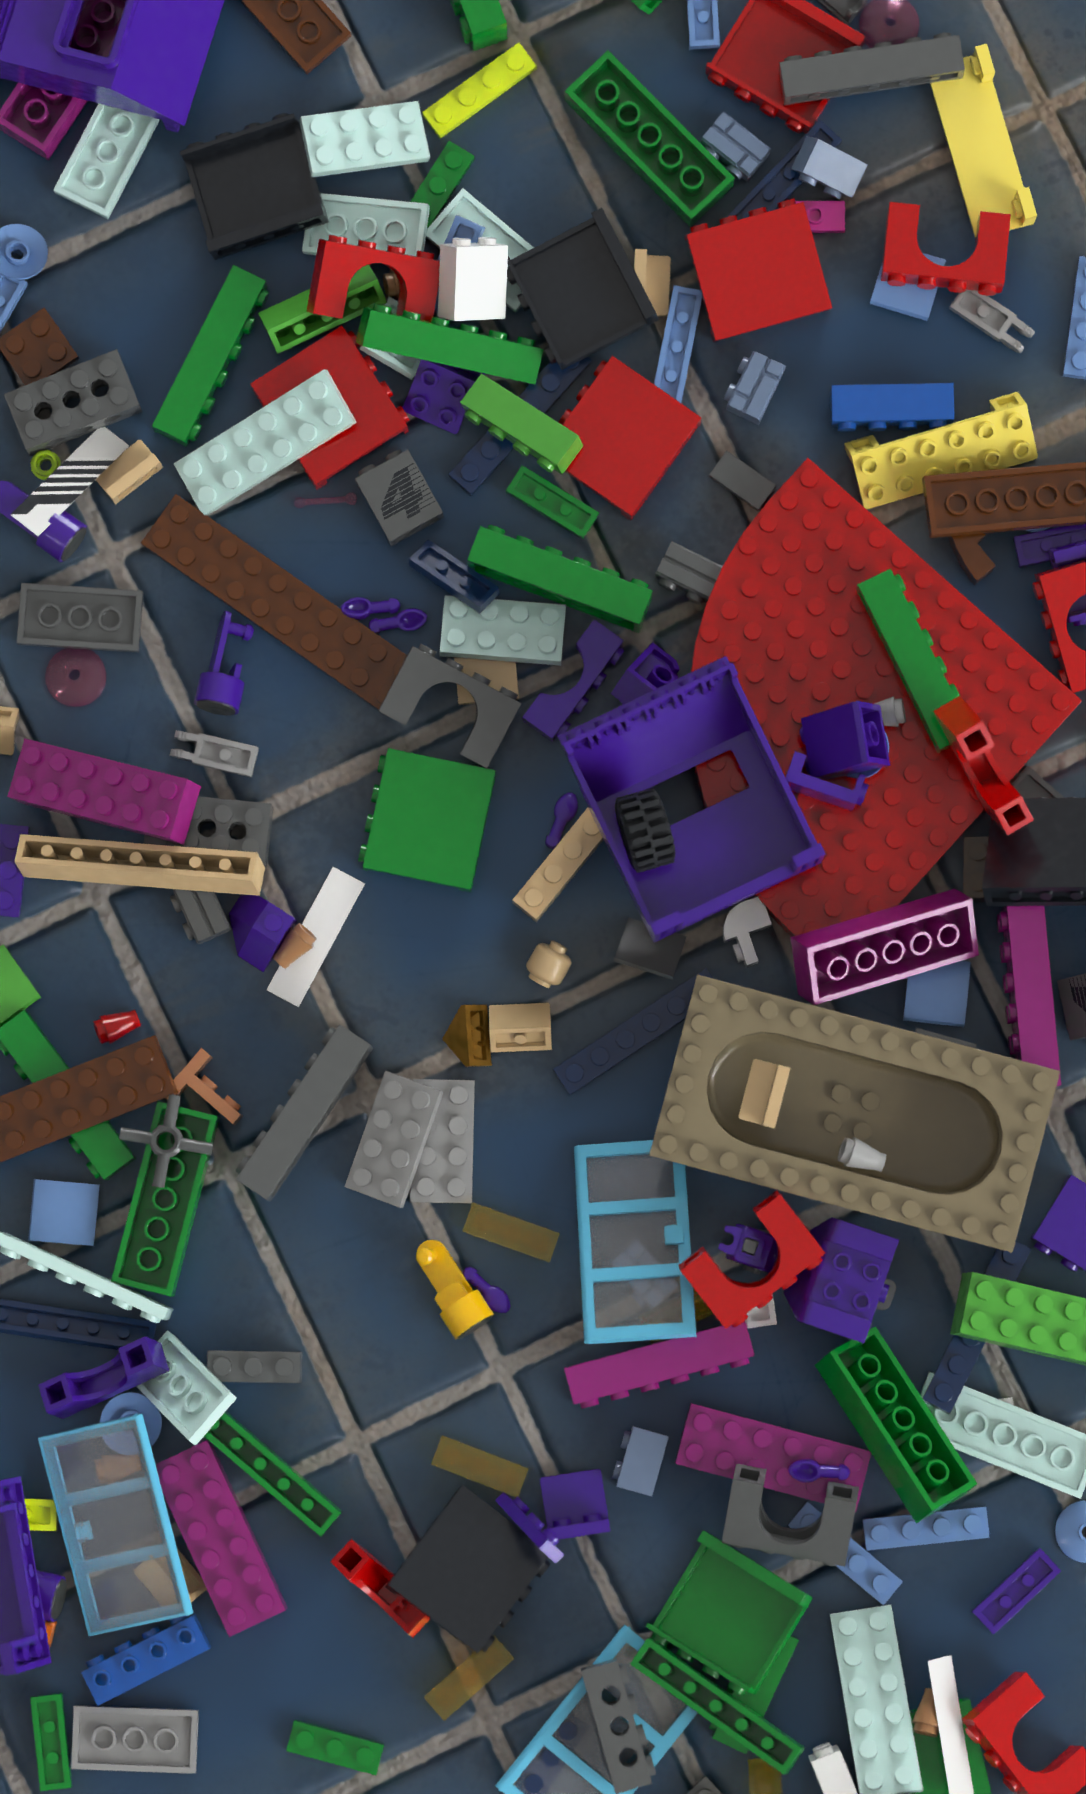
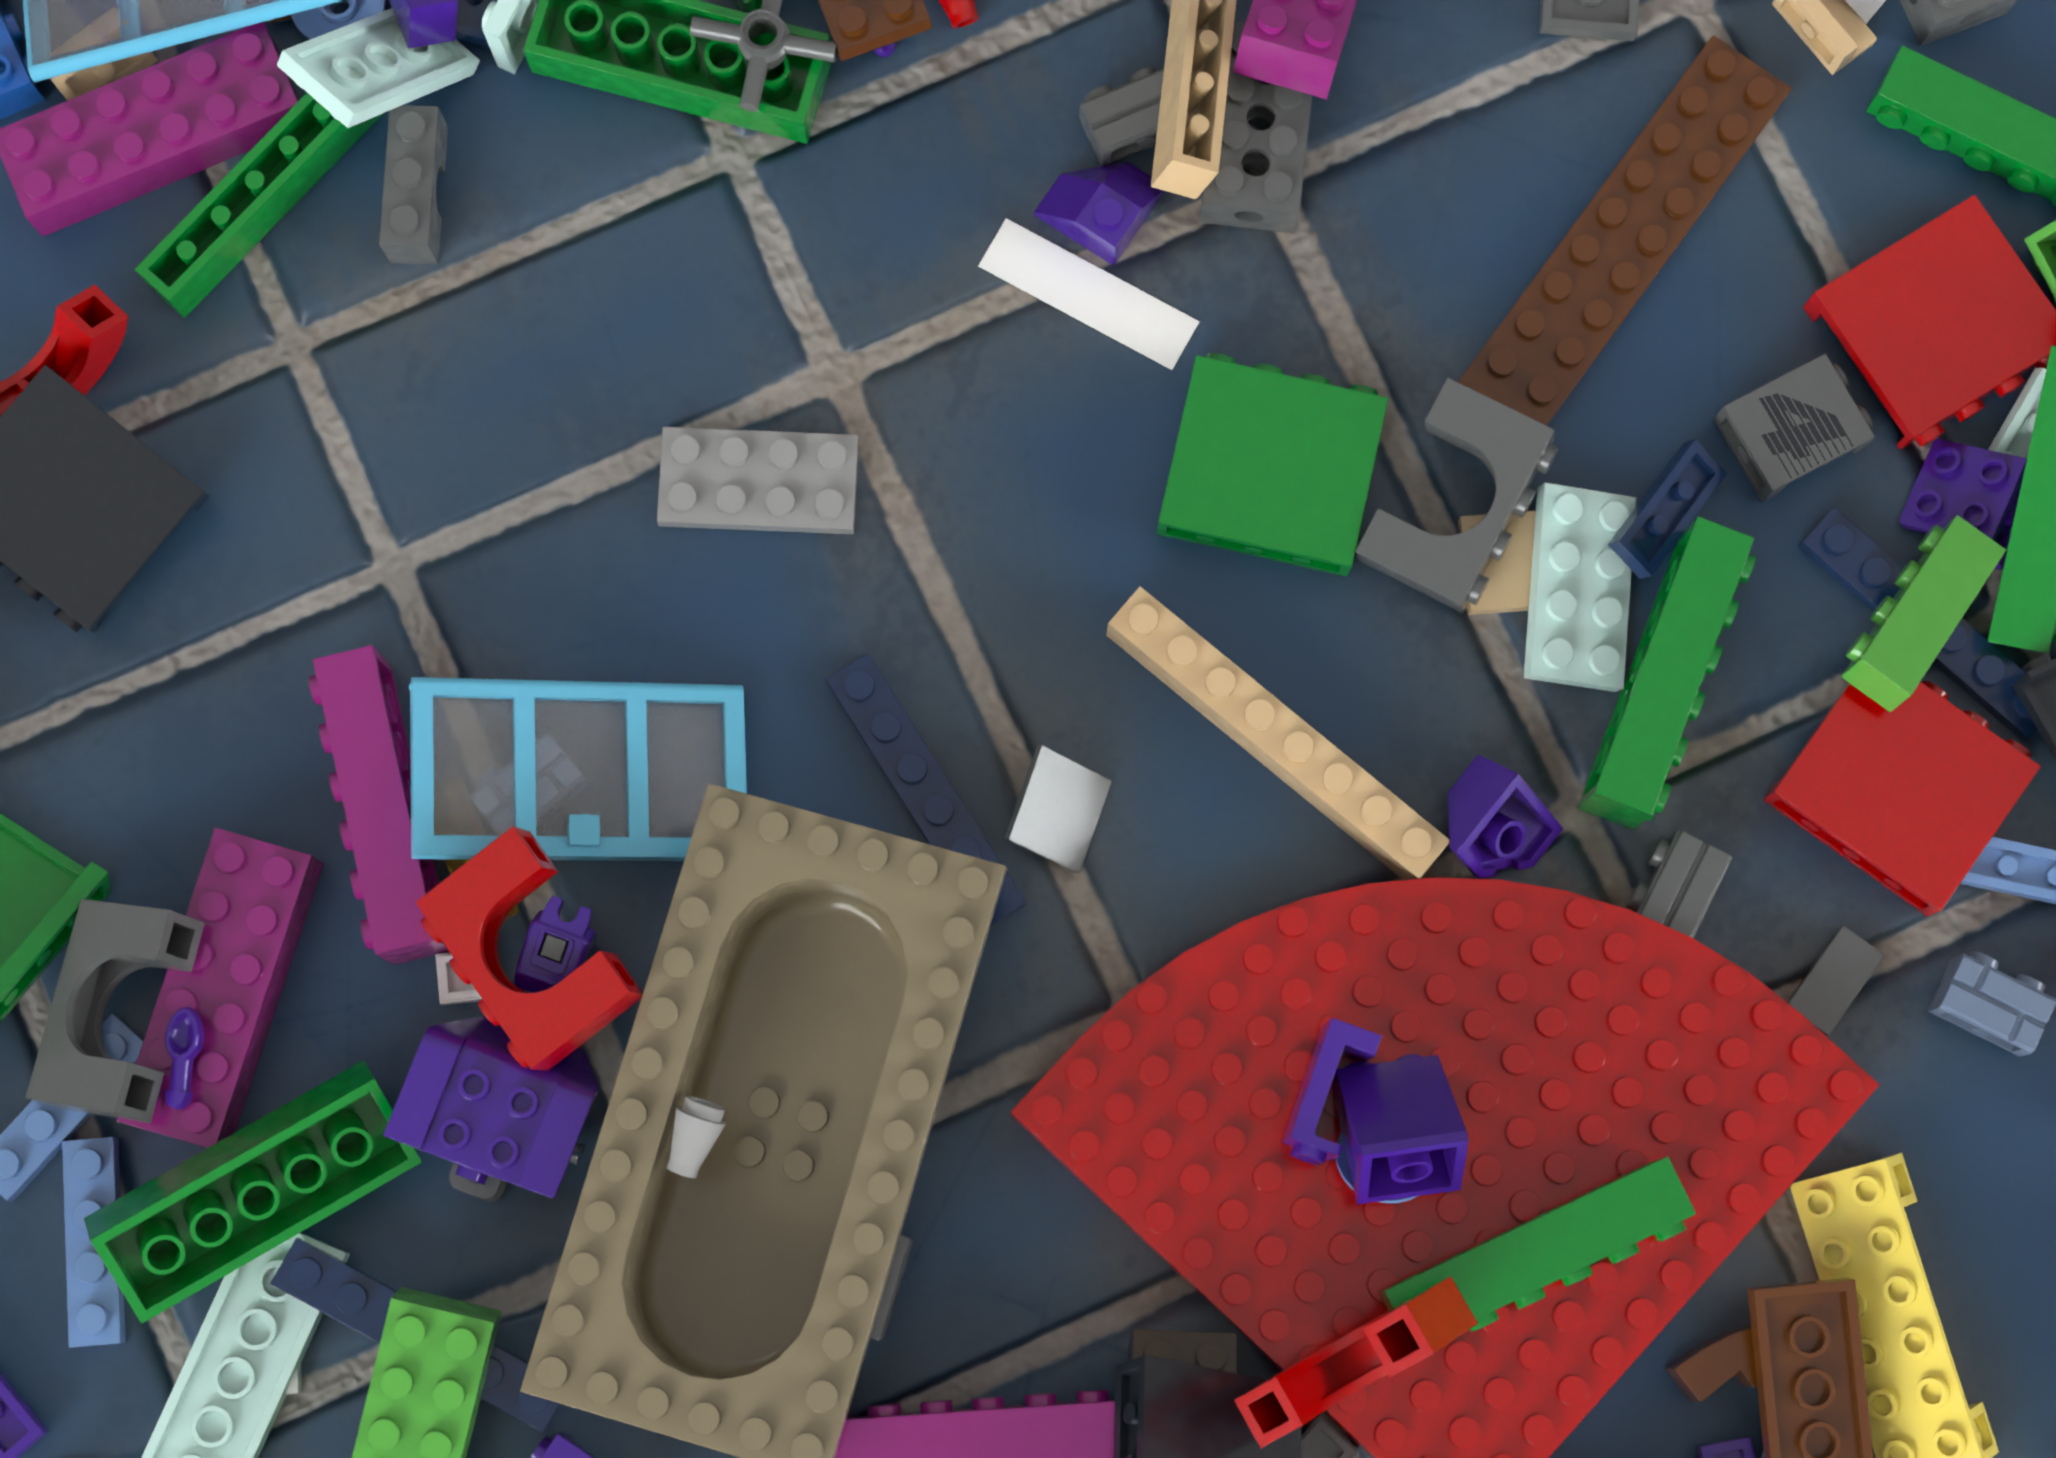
camera: 85 degrees right, 5 degrees down
(205, 1087) = (852, 116): nougat bracket -> none
(218, 691) = (1478, 142): dark purple piece -> none
(218, 753) = (1379, 148): light grey hinge -> none
(265, 442) = (1881, 218): light aqua plate -> none
(295, 944) = (1076, 257): medium nougat cone -> none
(304, 1112) = (806, 258): dark grey brick -> none
(350, 499) = (1790, 356): clear pink hinge -> none
(361, 607) = (1613, 370): dark purple piece -> none
(394, 1139) = (762, 401): light grey plate -> none
(406, 620) = (1594, 438): dark purple piece -> none
(460, 1305) = (495, 496): yellow piece -> none
(470, 1036) = (924, 526): pearl gold slope -> none
(479, 1466) = (238, 526): clear yellow plate -> none
(493, 1295) = (509, 554): dark purple piece -> none
(511, 1232) = (607, 582): clear yellow plate -> none
(520, 1027) = (936, 602): tan panel -> none
(531, 1526) = (125, 592): dark purple plate -> none
(548, 964) = (1036, 648): tan head -> none
(551, 712) = (1546, 736): dark purple arch -> none
(552, 502) = (1791, 670): green plate -> none
(564, 812) = (1283, 681): dark purple piece -> none
(575, 1504) = (163, 673): dark purple bracket -> none
(641, 1460) = (229, 778): sand blue brick -> none
(645, 830) = (1247, 777): black tyre -> none
(720, 851) = (1205, 896): dark purple panel -> none
(740, 922) = (1100, 959): white brick -> none
(764, 1093) = (805, 975): tan panel -> none
(884, 946) = (1050, 1190): magenta brick -> none
(891, 406) = (1970, 1231): blue brick -> none
(892, 711) = (1449, 1213): light grey cone -> none
(938, 995) = (979, 1283): medium blue slope -> none

